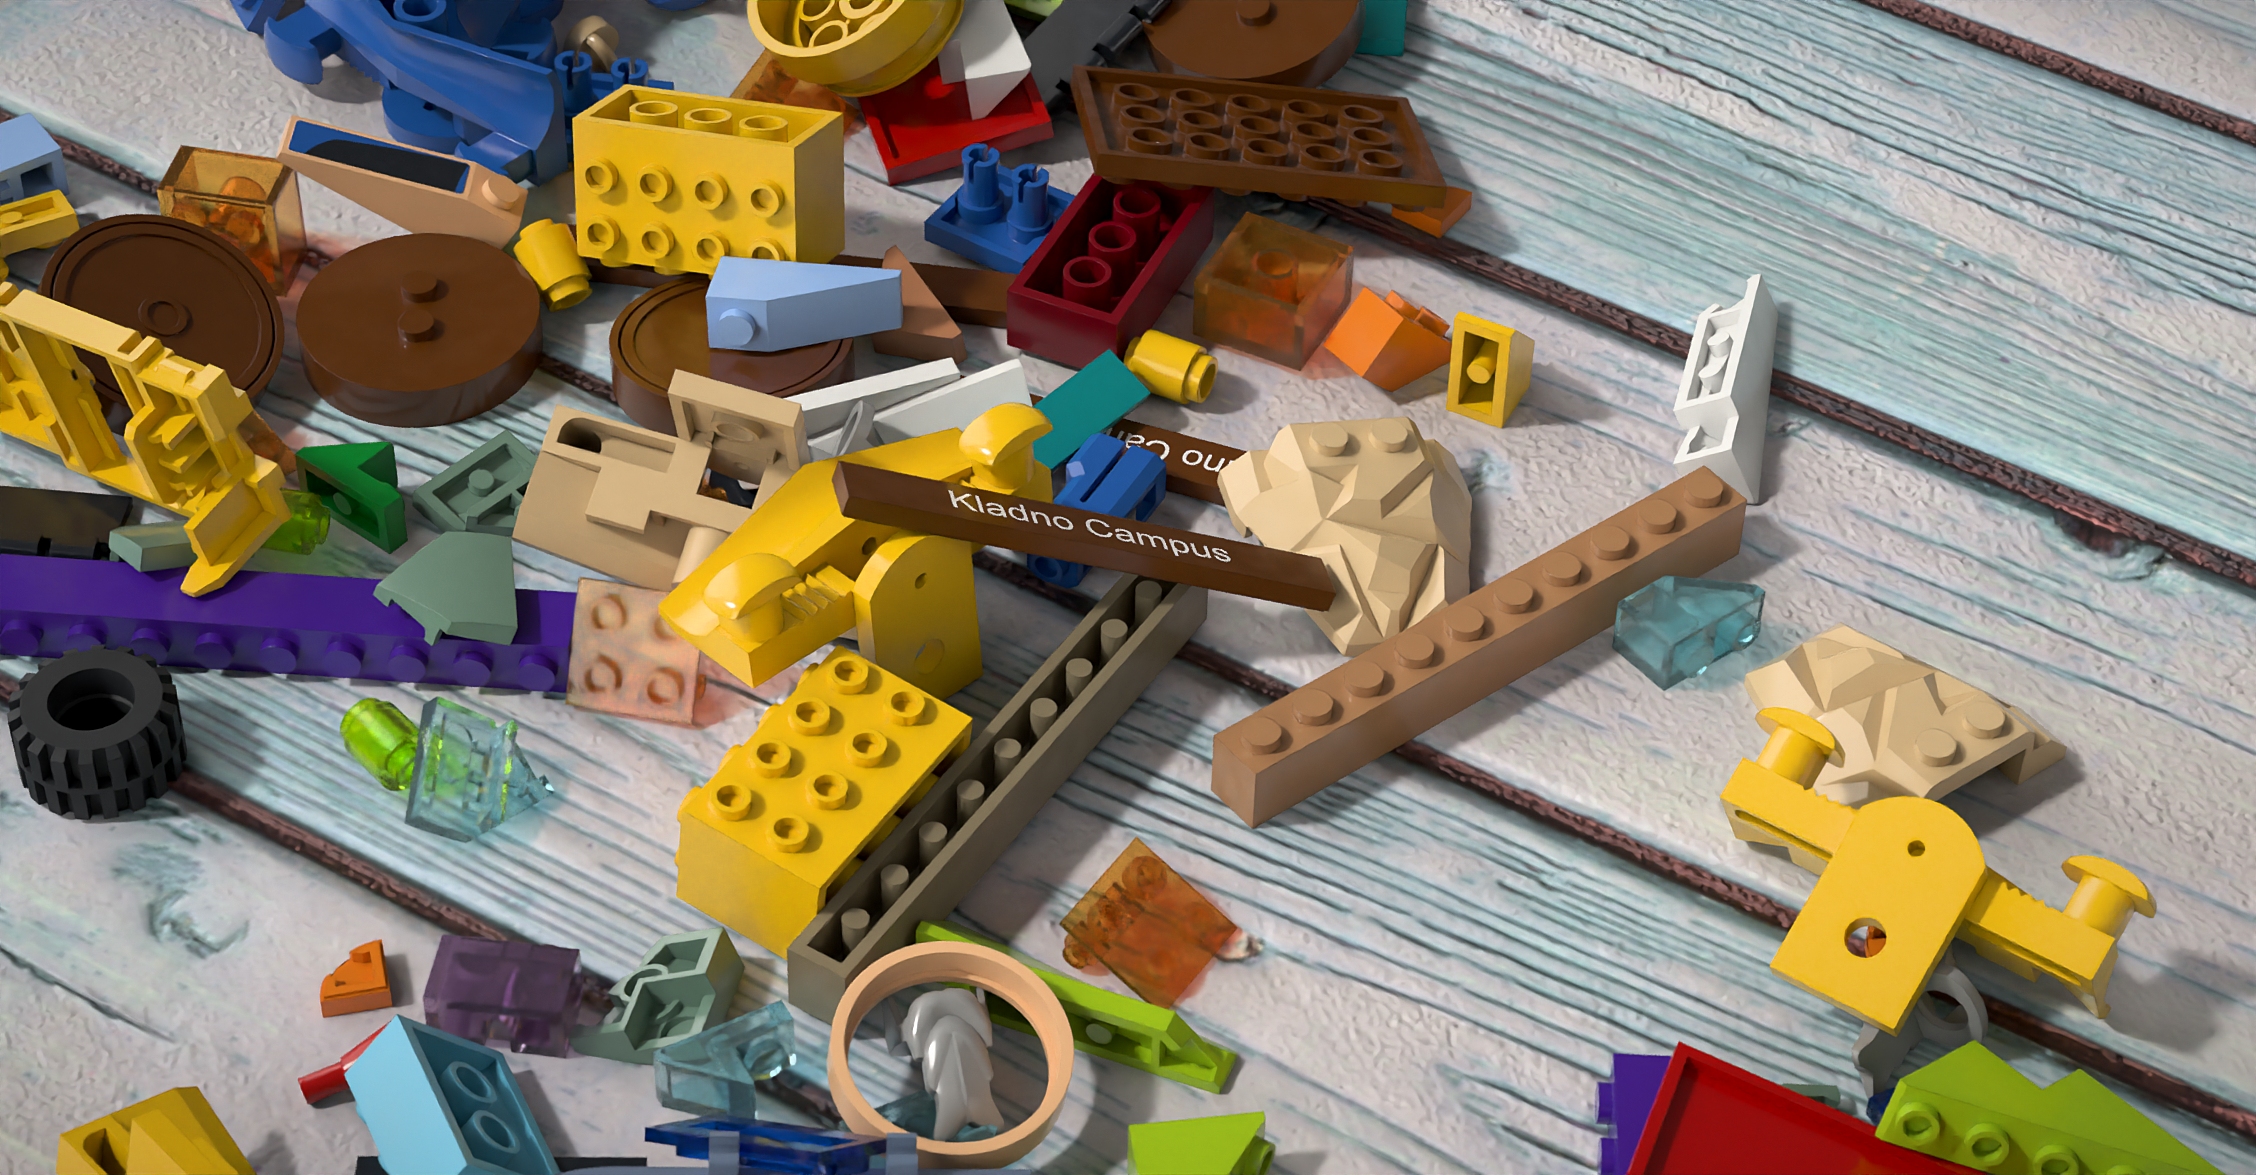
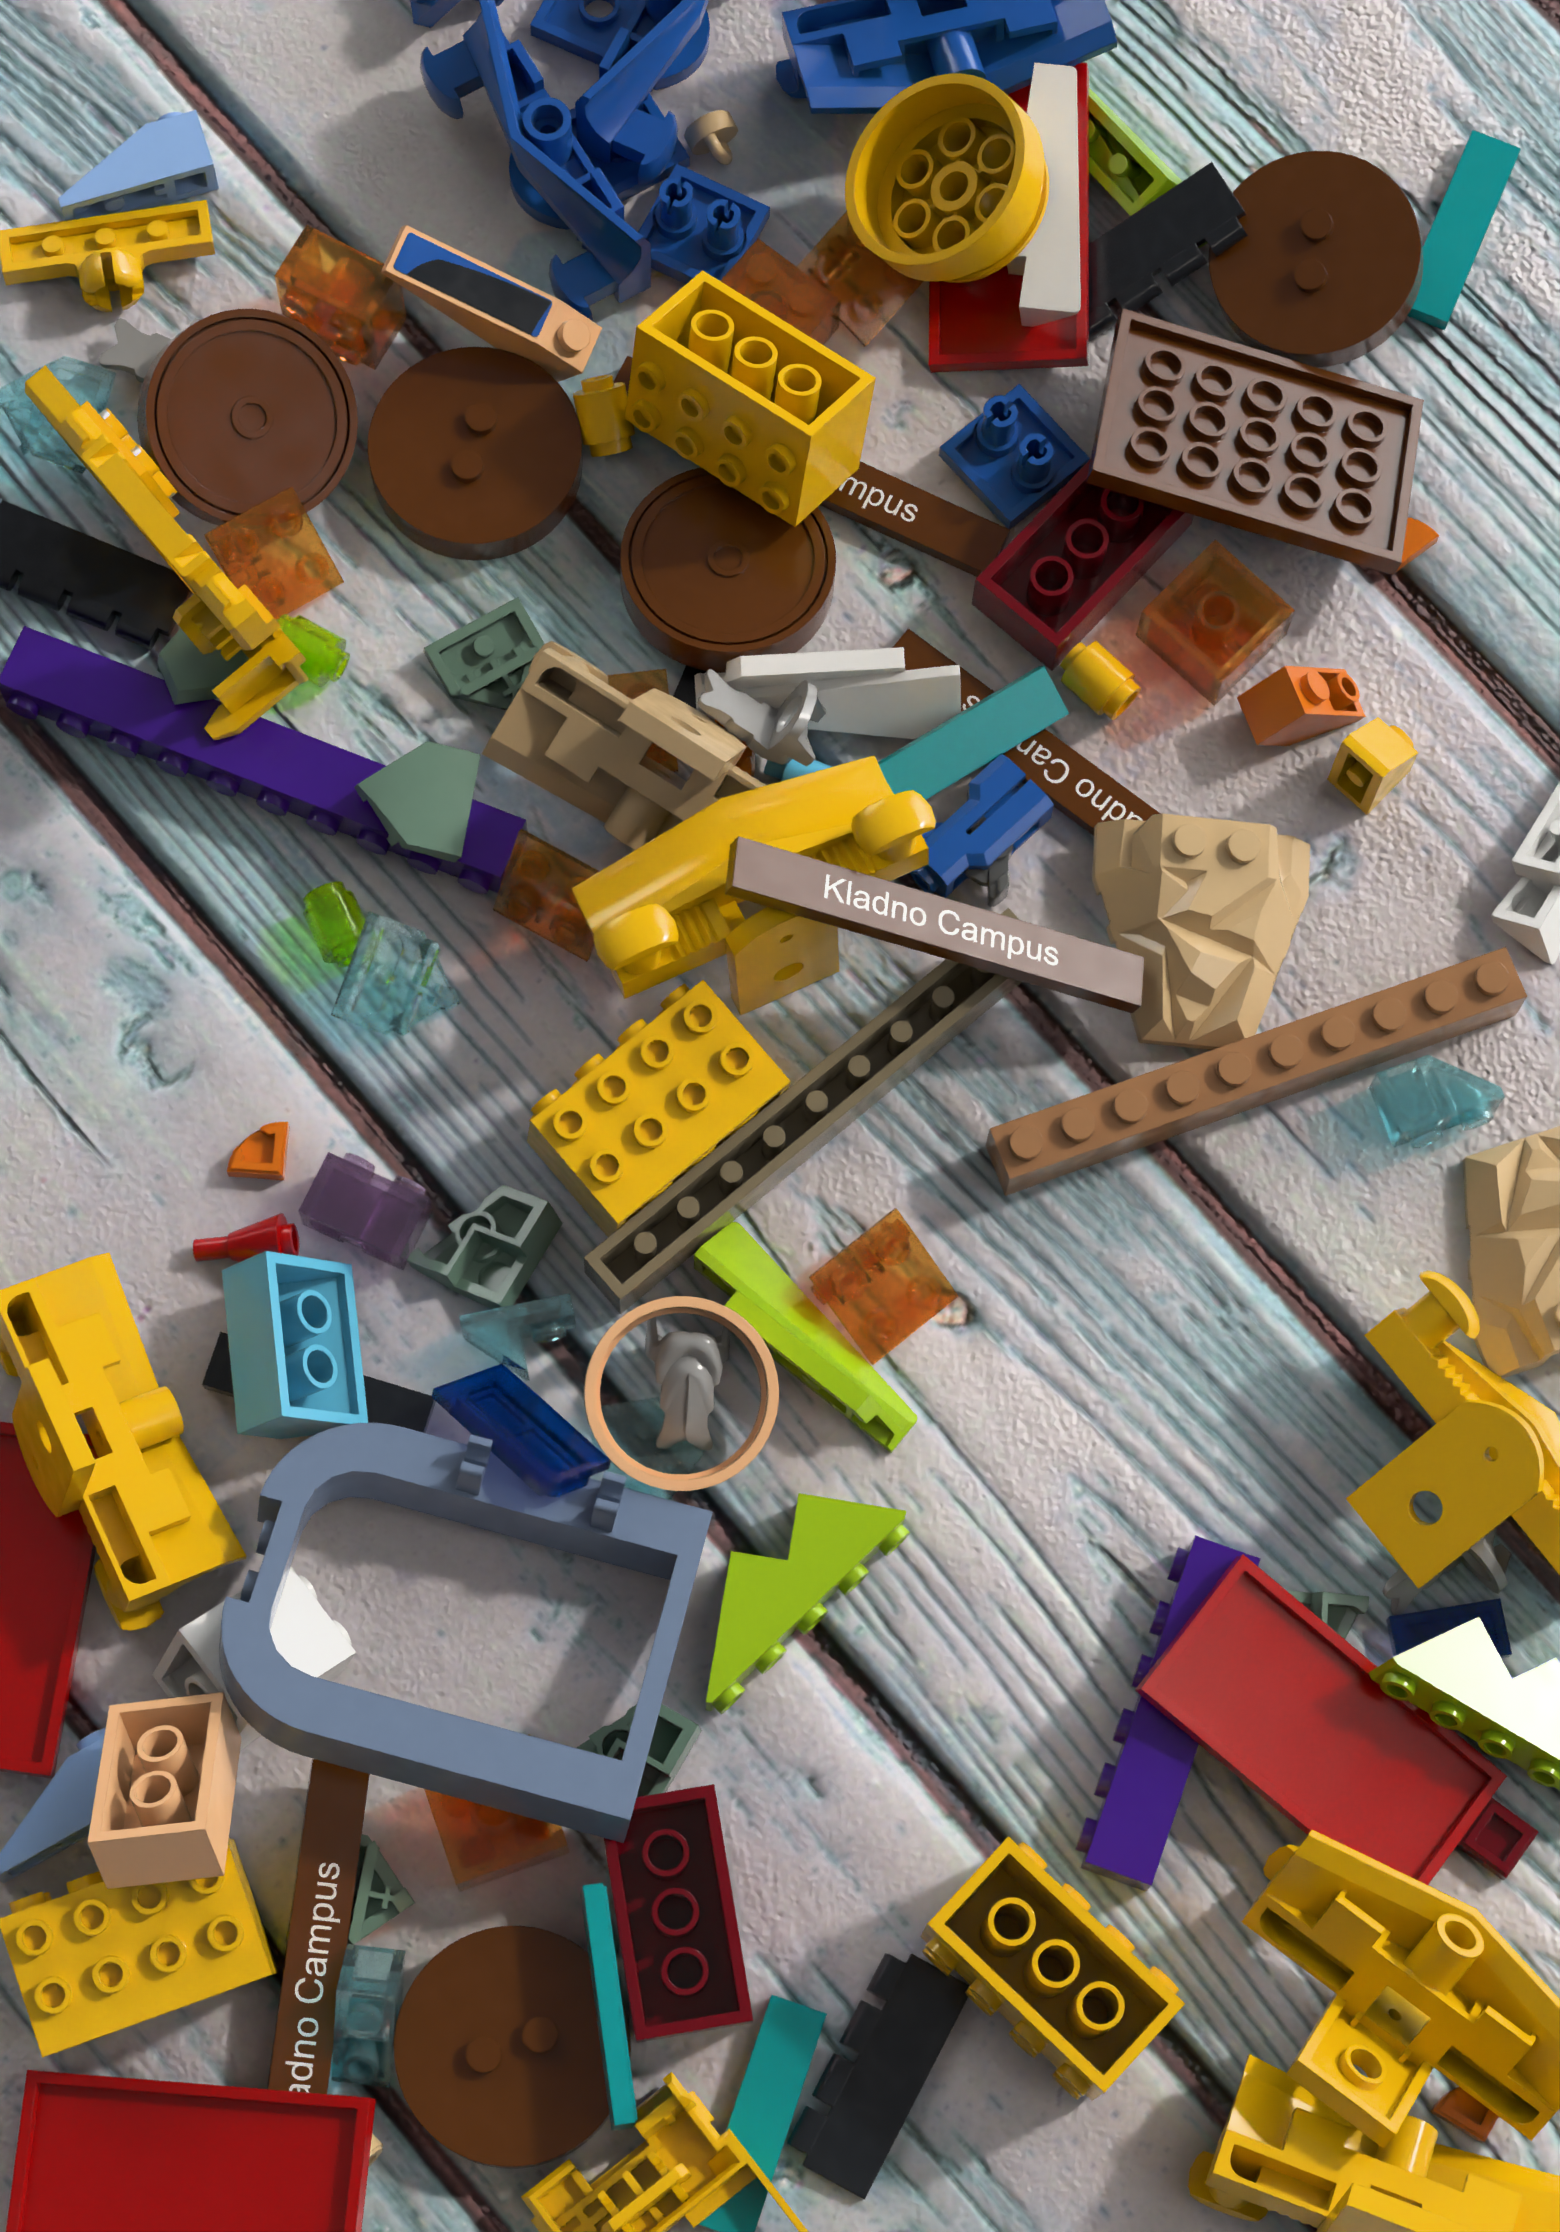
camera: 15 degrees right, 30 degrees up
(97, 732) = (99, 812): black tyre -> none
(358, 489) = (374, 628): green slope -> none
(798, 303) = (781, 550): light blue slope -> none
(926, 326) = (892, 560): nougat slope -> none

